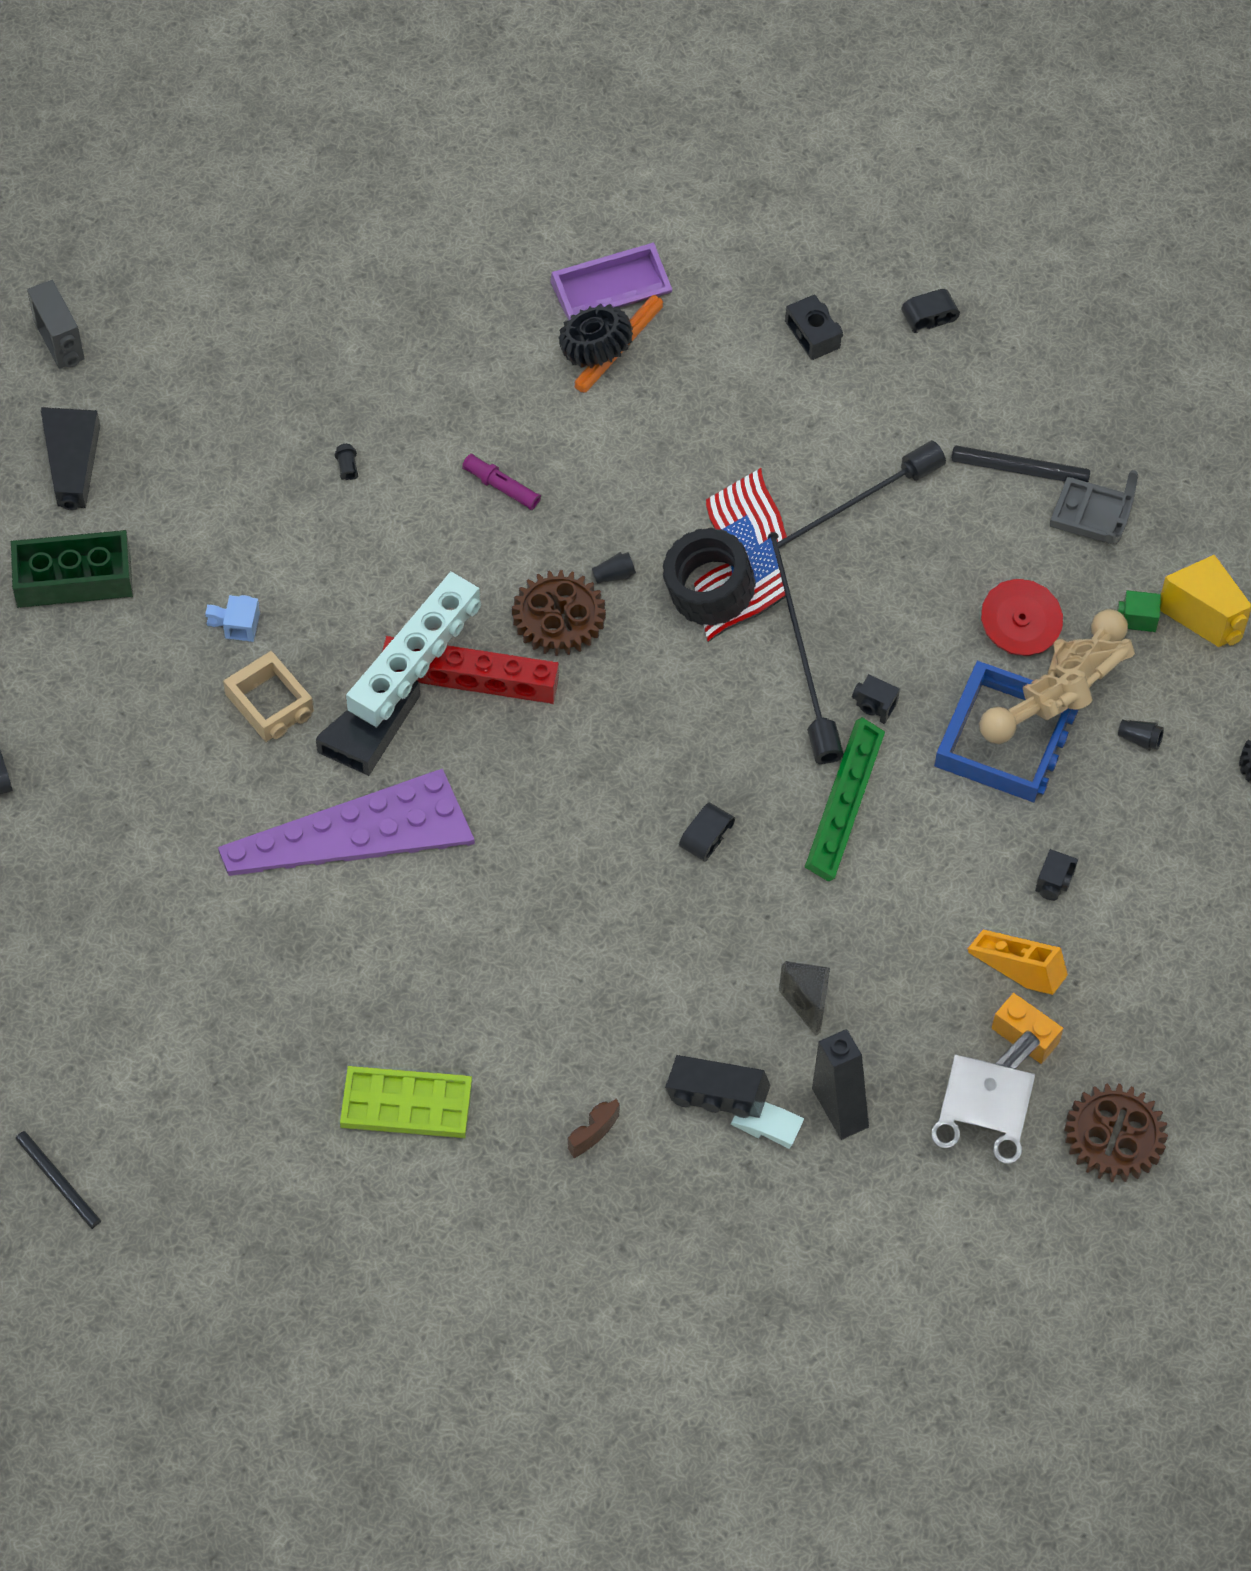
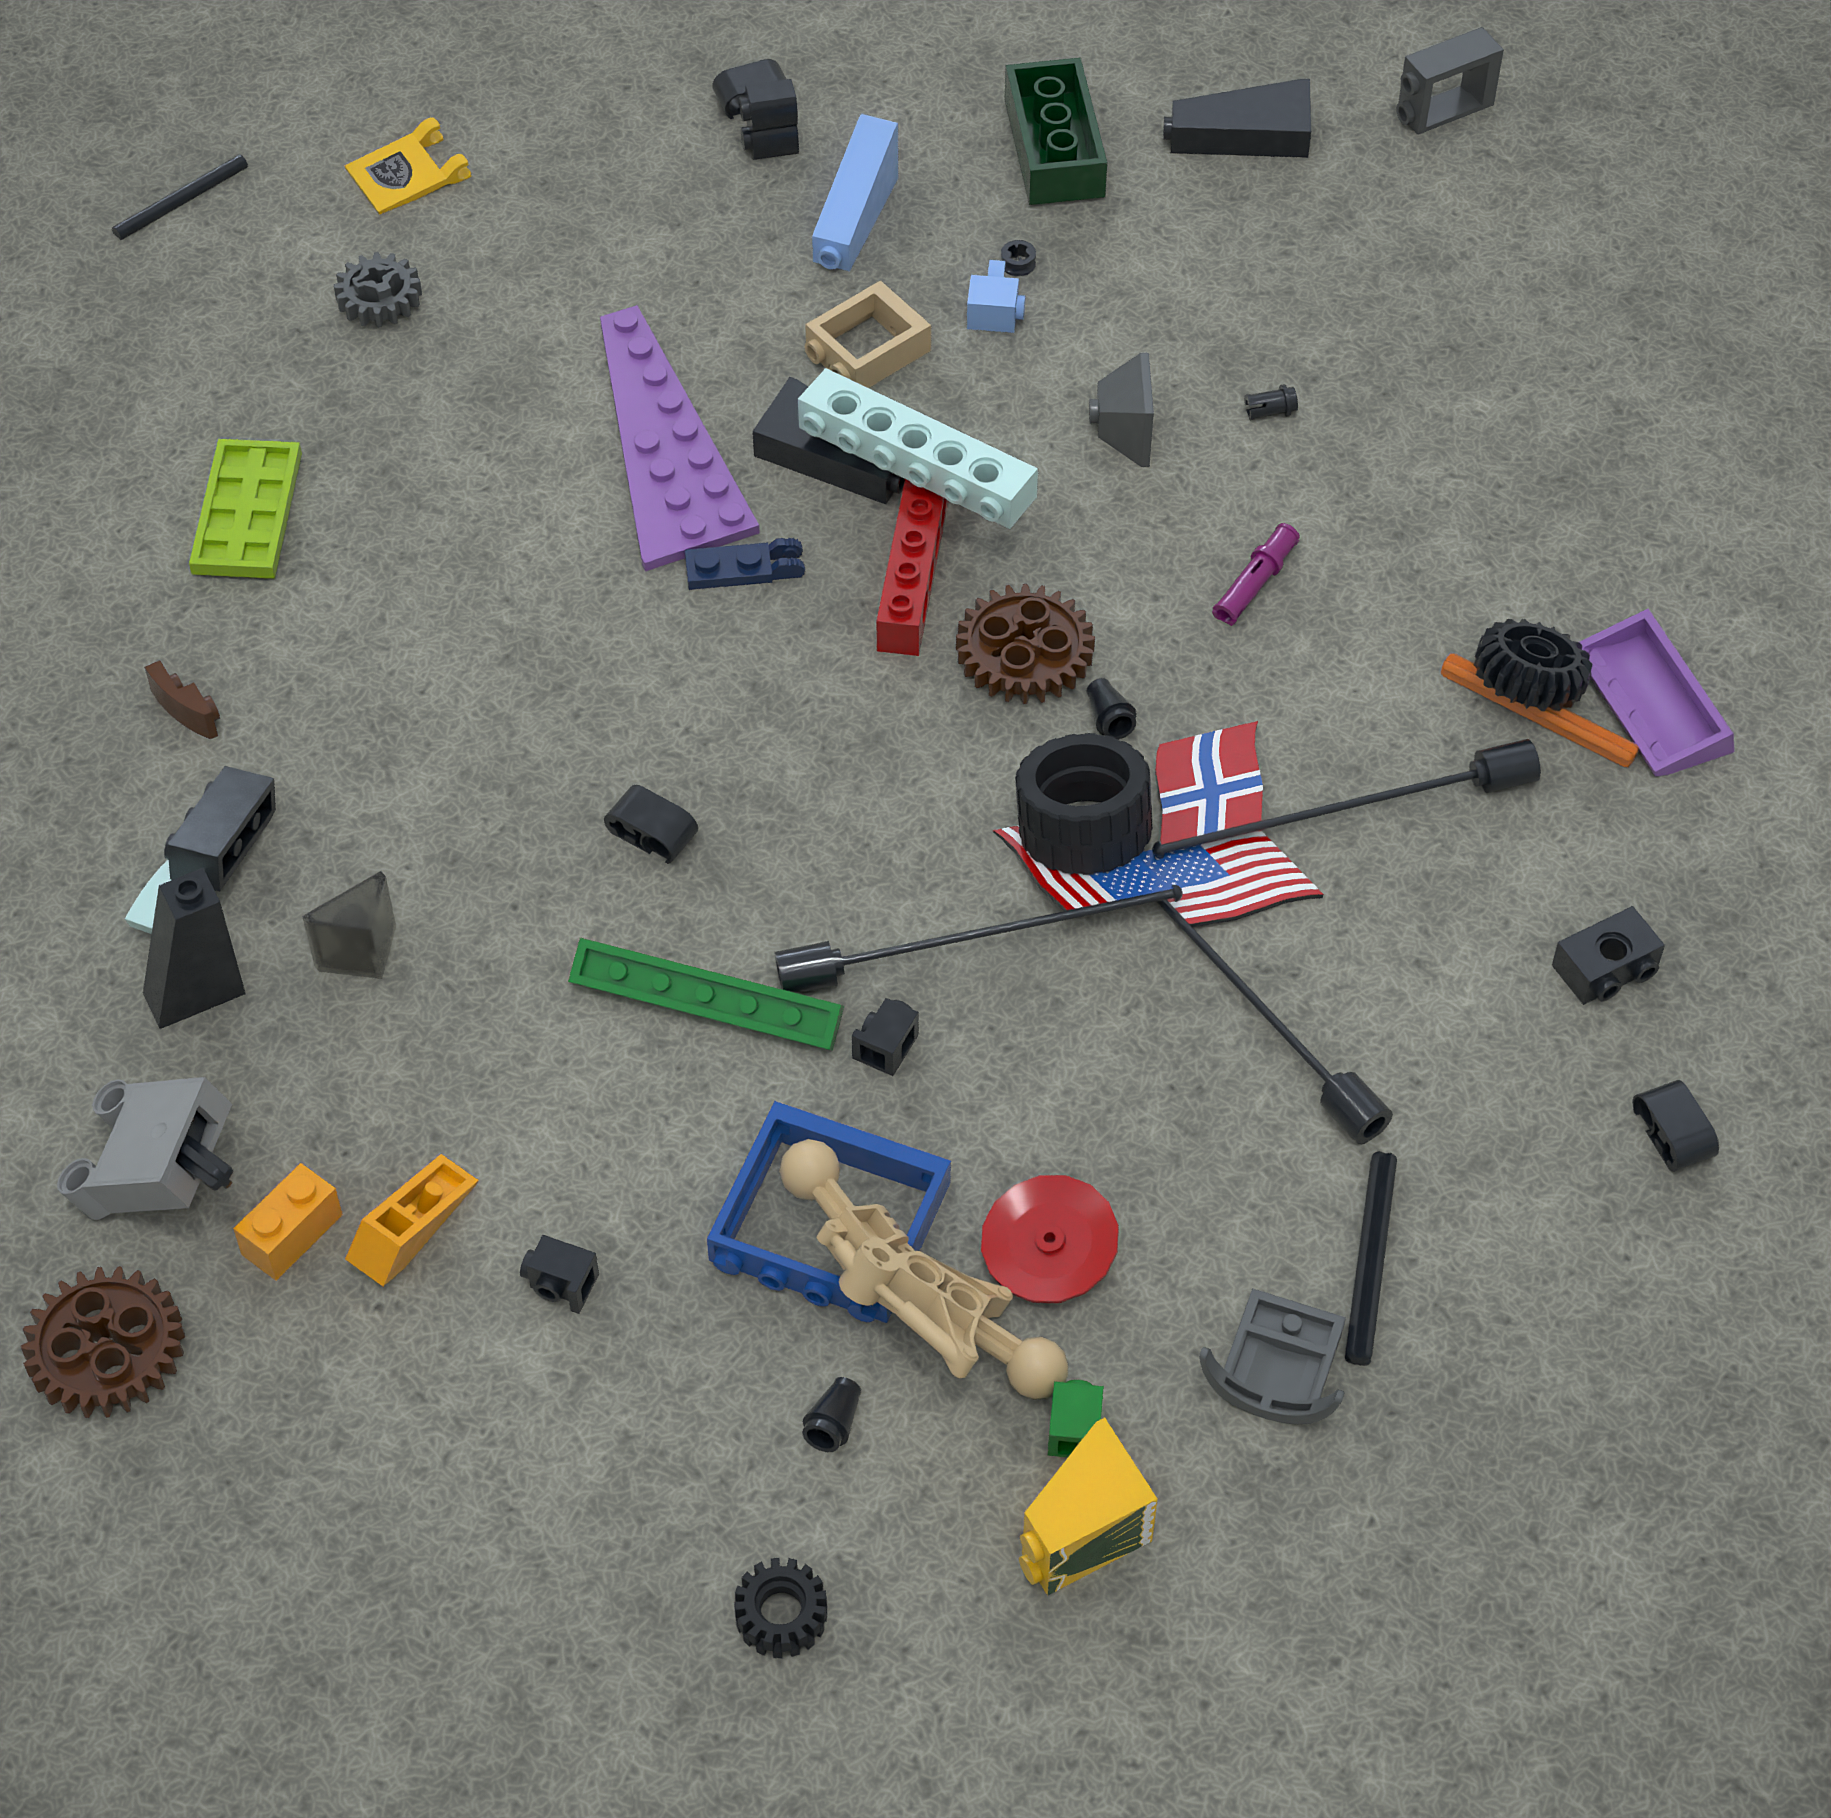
camera: 90 degrees right, 5 degrees down
(43, 748) = (770, 119): none -> black brick
(49, 1018) = (405, 169): none -> yellow flag
(128, 696) = (857, 193): none -> light blue slope
(189, 597) = (1018, 248): none -> black bush
(197, 1012) = (377, 289): none -> dark grey gear
(362, 535) = (1126, 409): none -> dark grey slope
(475, 783) = (744, 564): none -> dark blue hinge
(667, 516) = (1215, 786): none -> flag

